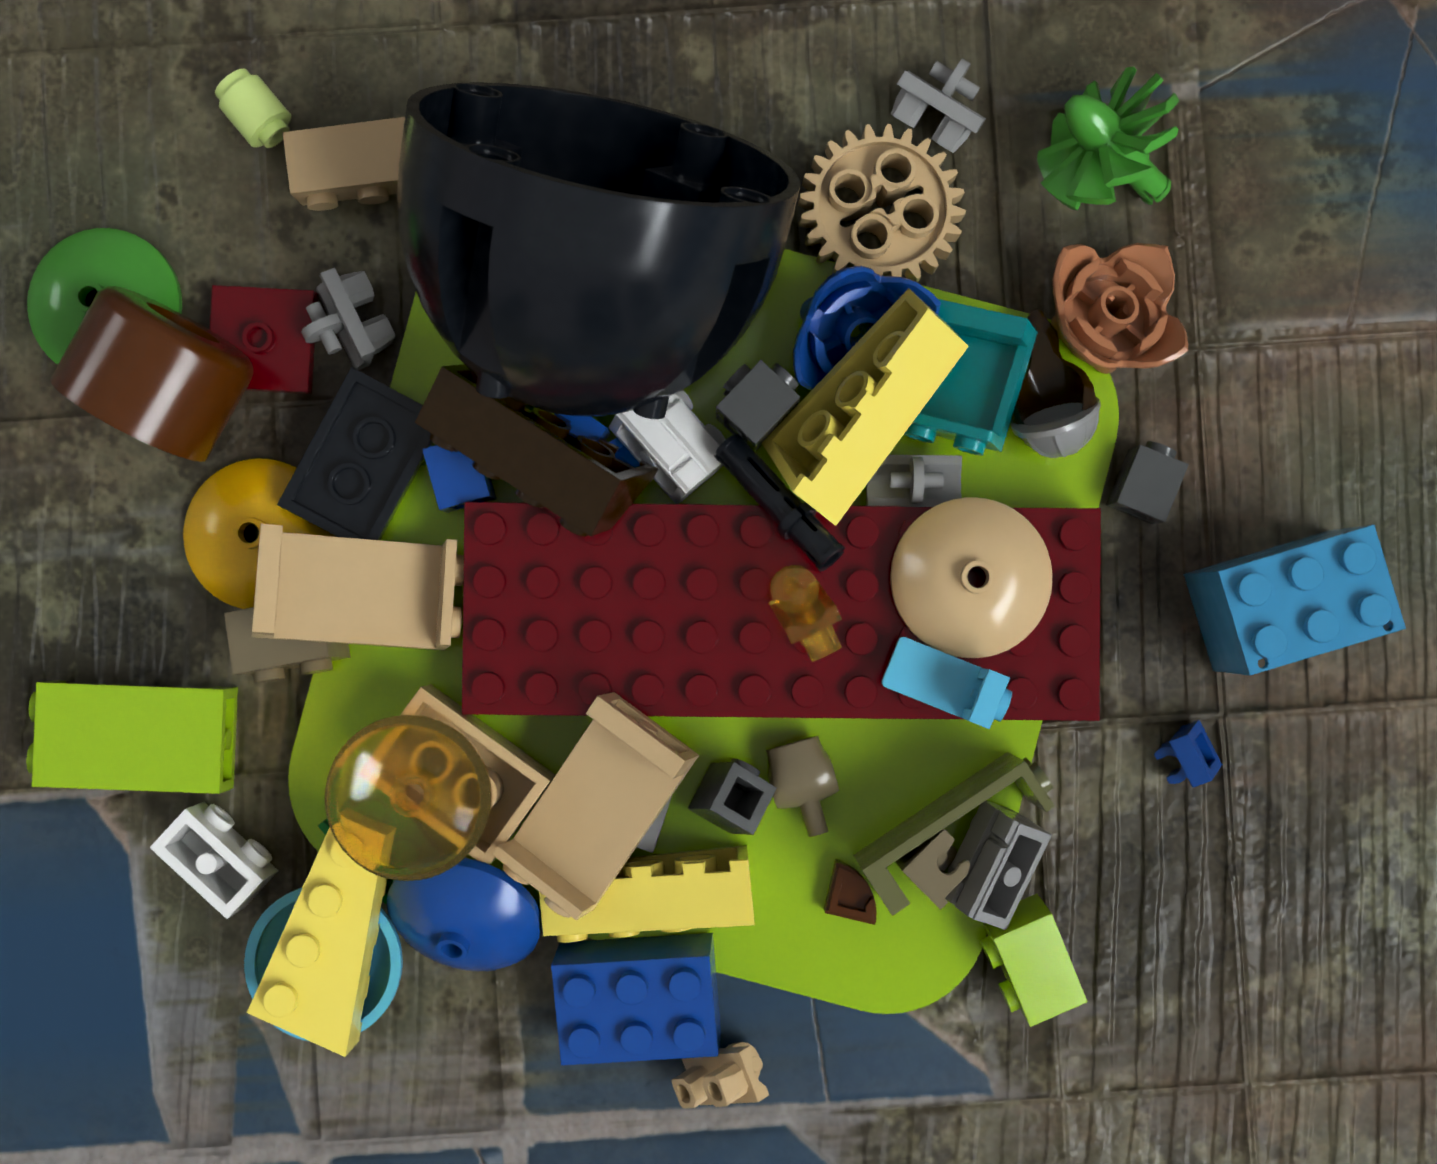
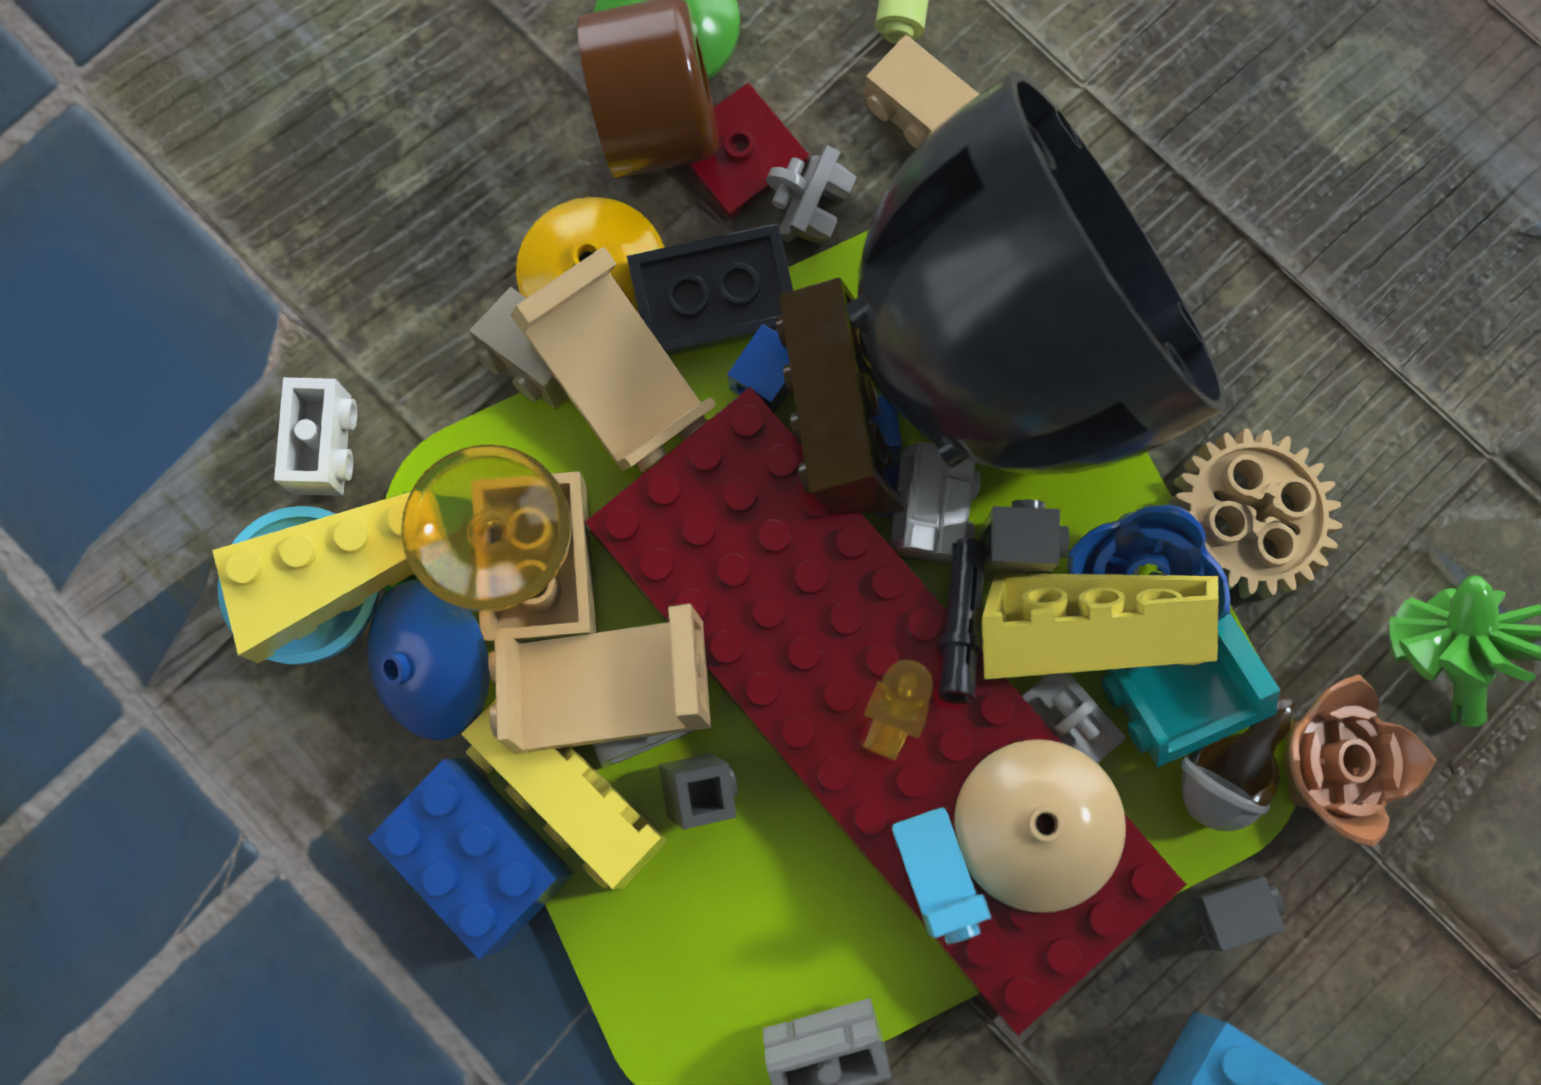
camera: 50 degrees right, 10 degrees down
(133, 737) = (360, 302): lime panel -> none
(721, 1079) = (462, 981): tan hips -> none
(802, 780) = (759, 837): dark tan piece -> none
(850, 895) = (699, 959): reddish brown tile -> none
(918, 94) = (1365, 467): light grey hips -> none
(927, 865) = (775, 998): dark tan hinge -> none
(942, 813) = (921, 1013): olive panel -> none

